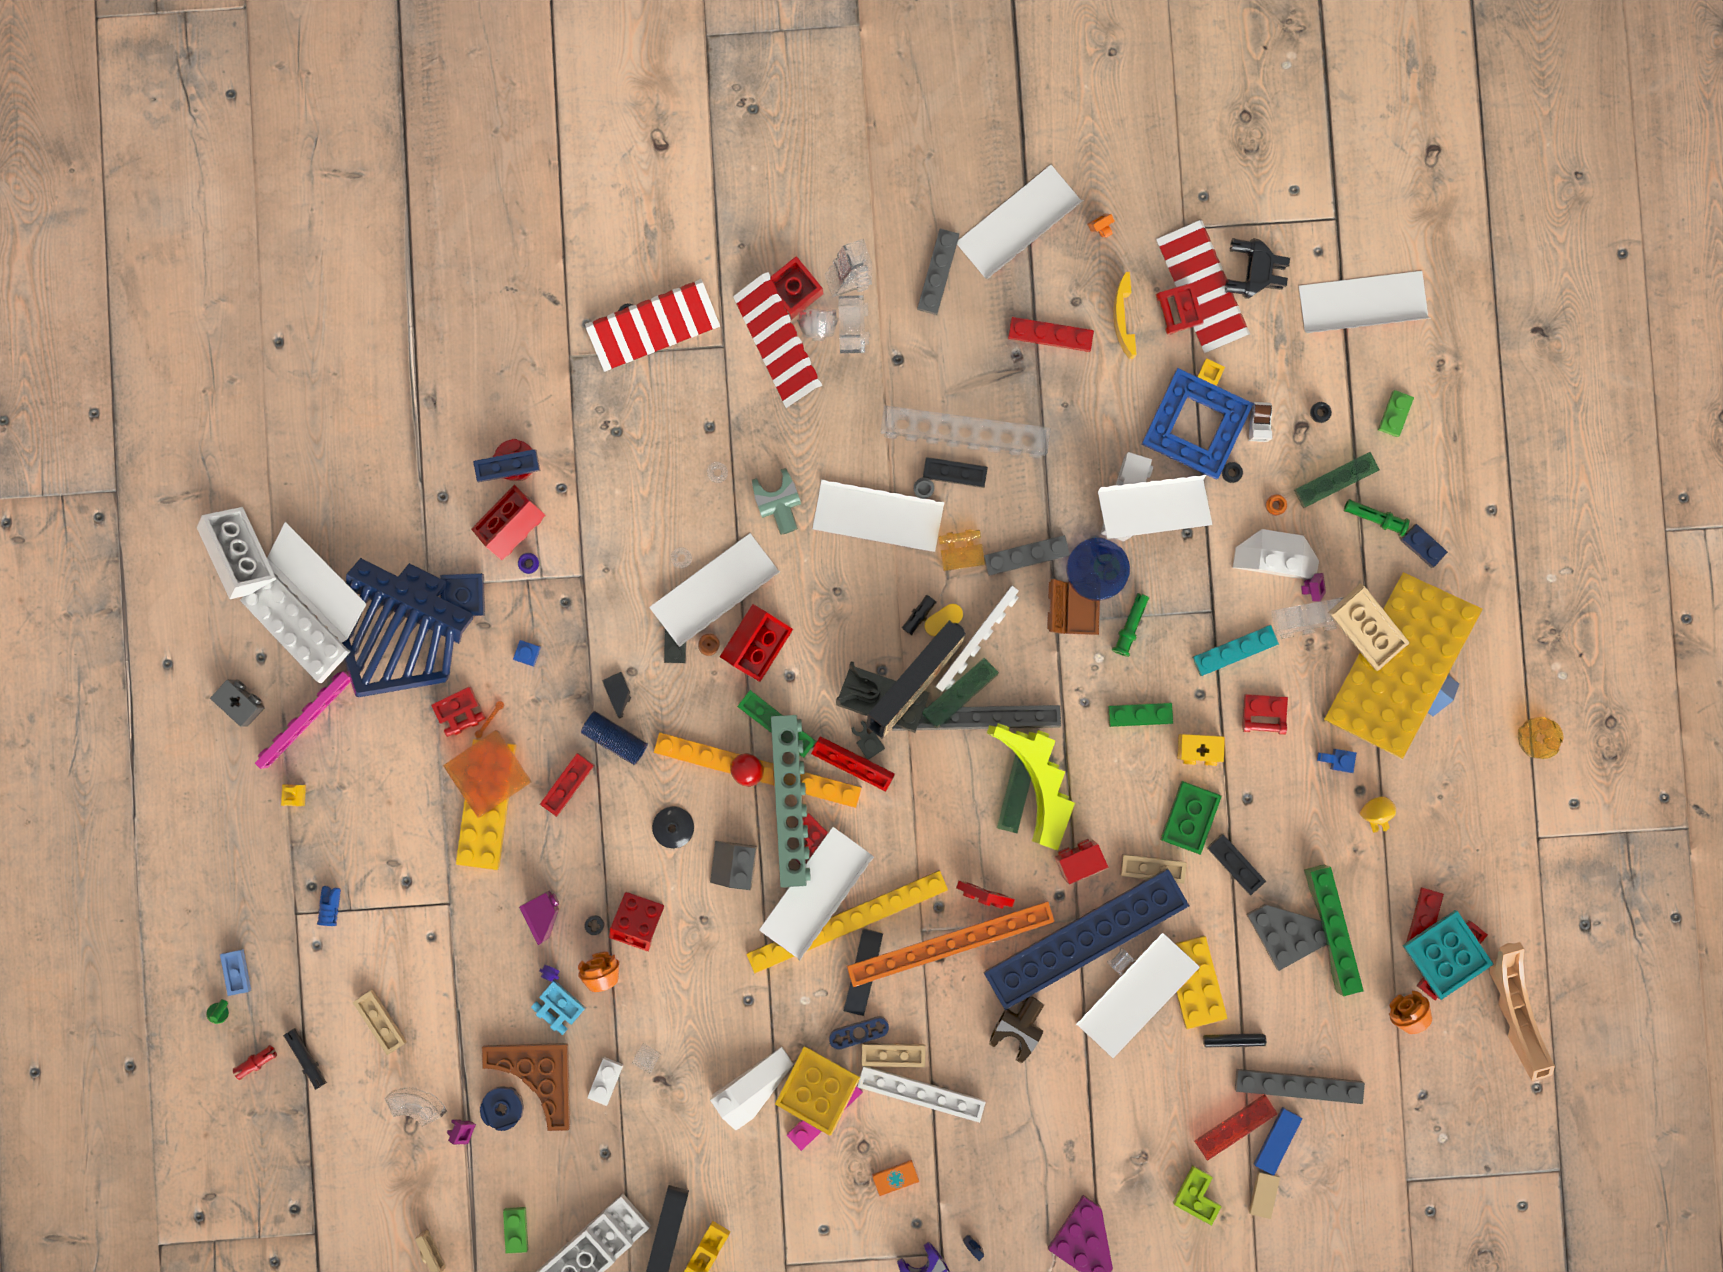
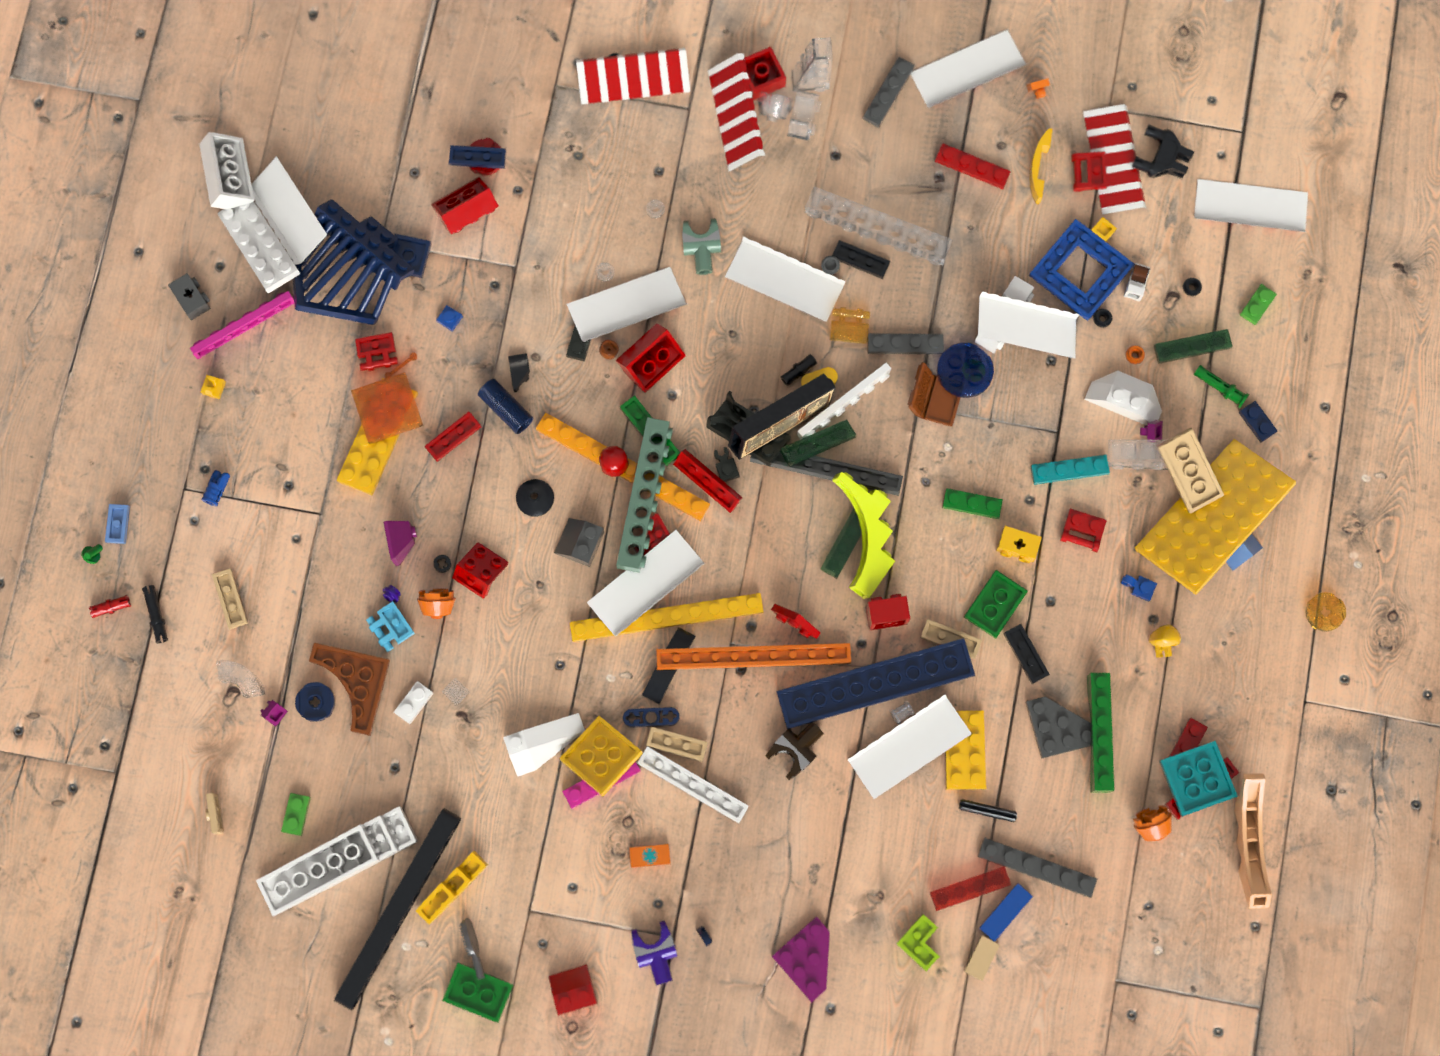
camera: 10 degrees right, 10 degrees down
(522, 563) = (469, 239): dark purple plate -> none
(1127, 634) = (978, 431): green pin -> none

